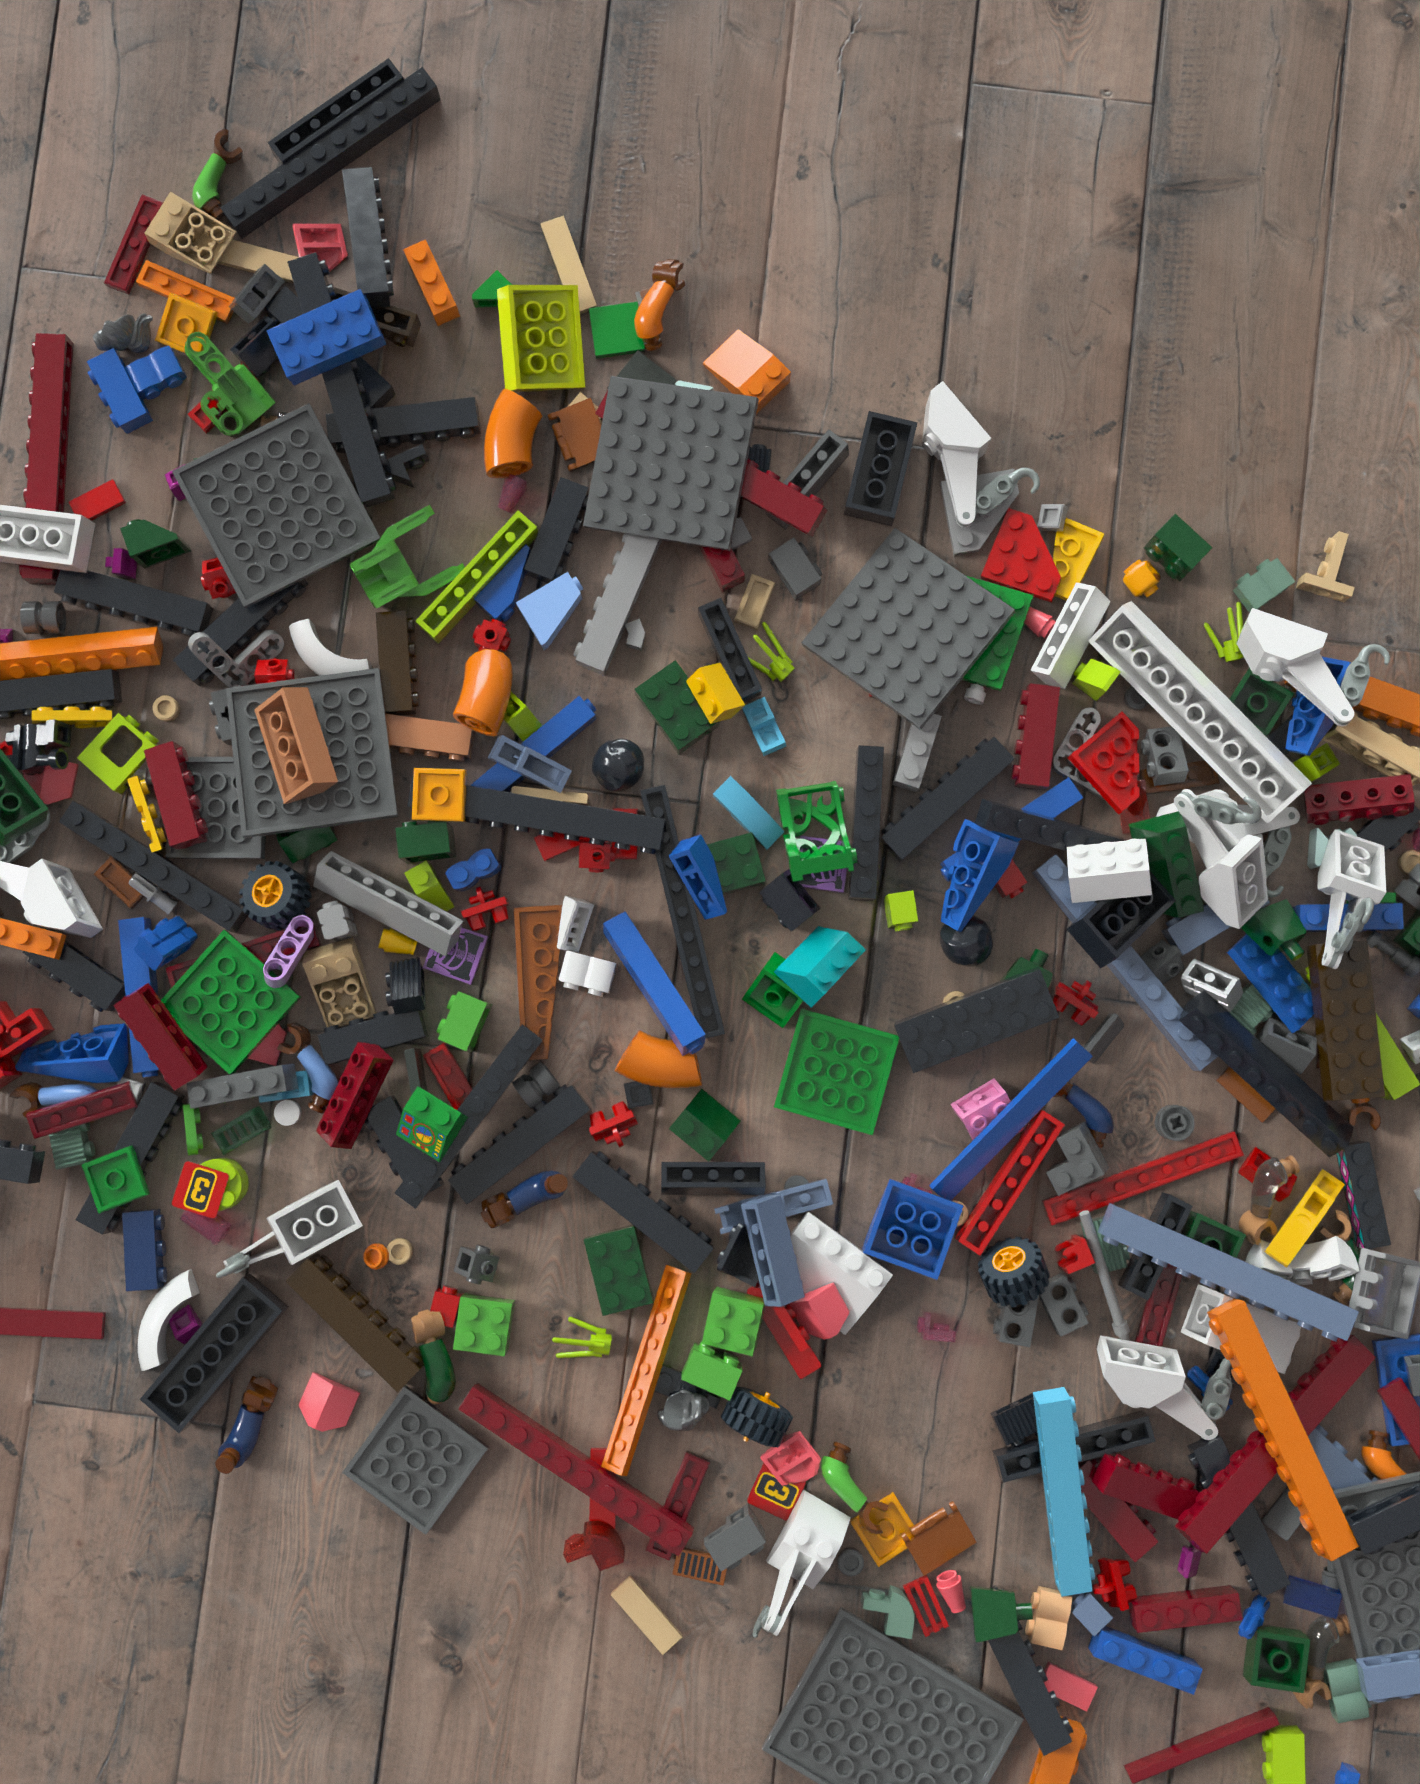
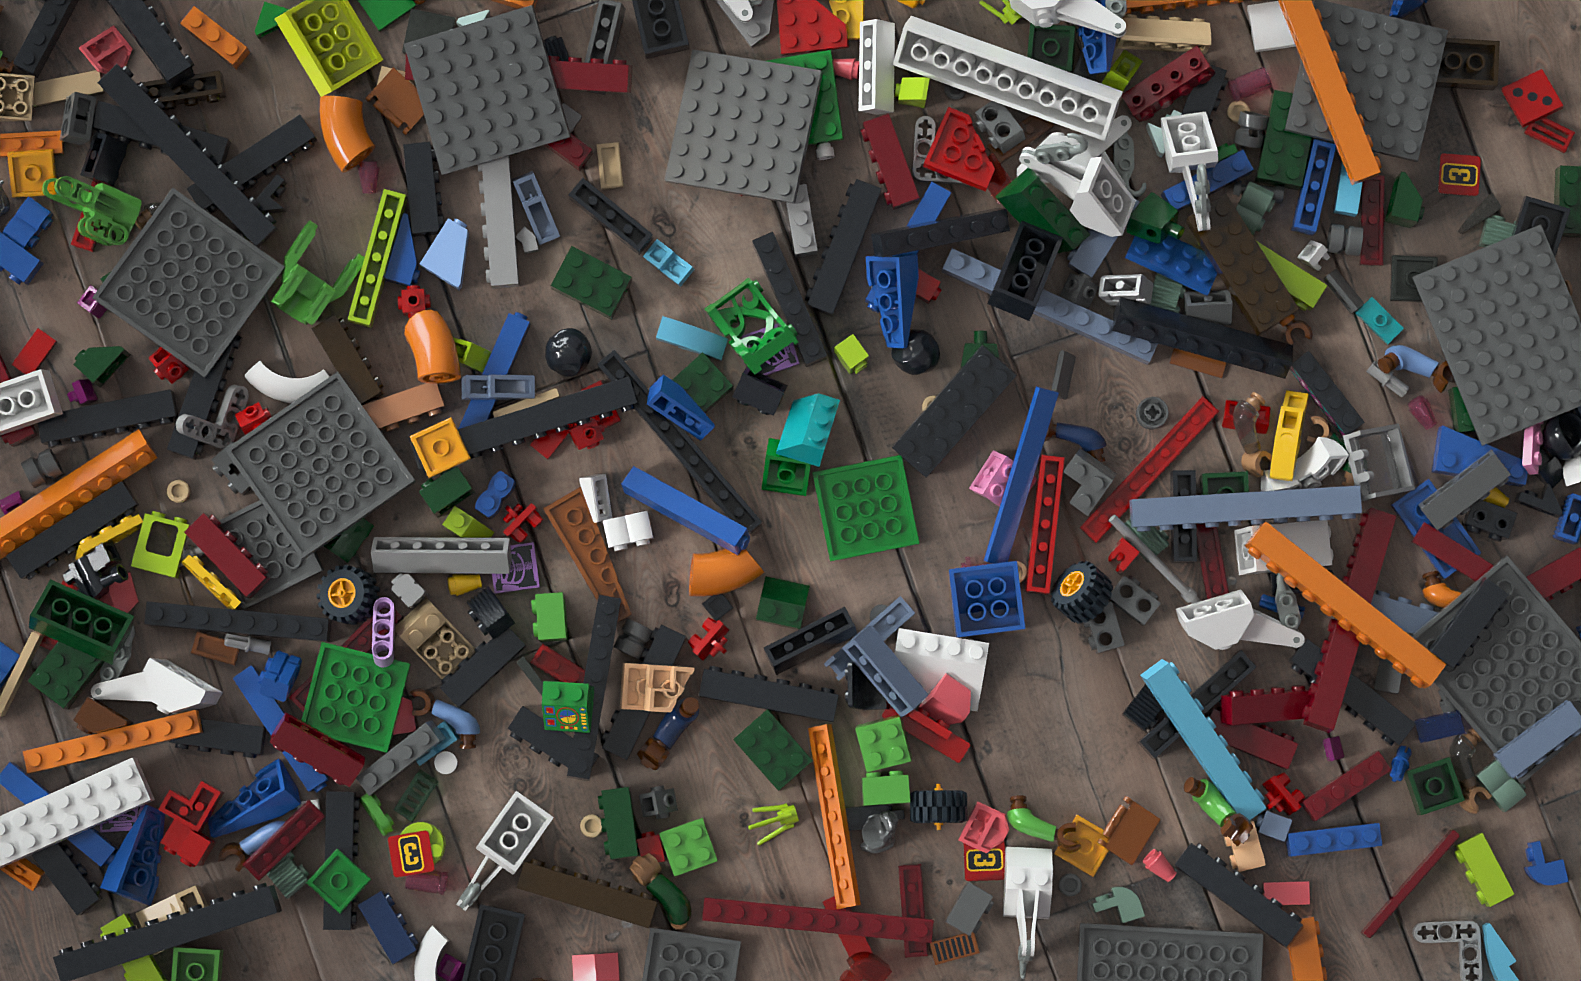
camera: 30 degrees left, 0 degrees up
(295, 744) = (306, 465): nougat slope -> none
(326, 337) = (163, 128): blue brick -> none
(354, 1095) = (494, 719): dark red brick -> none
(376, 1256) = (575, 838): orange plate -> none
(425, 1265) = (618, 823): none -> dark green brick
(529, 1144) = (652, 686): none -> light nougat slope
(660, 606) = (536, 207): none -> sand blue slope
(715, 693) = (617, 256): yellow brick -> none
(780, 666) = (657, 208): lime plant -> none
(794, 568) = (629, 123): dark grey brick -> none
(934, 1627) = (1161, 900): red tile -> none
(939, 1332) = (1049, 670): clear pink bracket -> none
(996, 1613) = (1198, 859): dark green torso -> none
(1040, 1559) = (1217, 808): none -> piece
(1066, 995) = (1016, 356): red hips -> none
(1108, 870) = (997, 241): white brick -> none
(1386, 964) = (1253, 206): none -> sand green brick

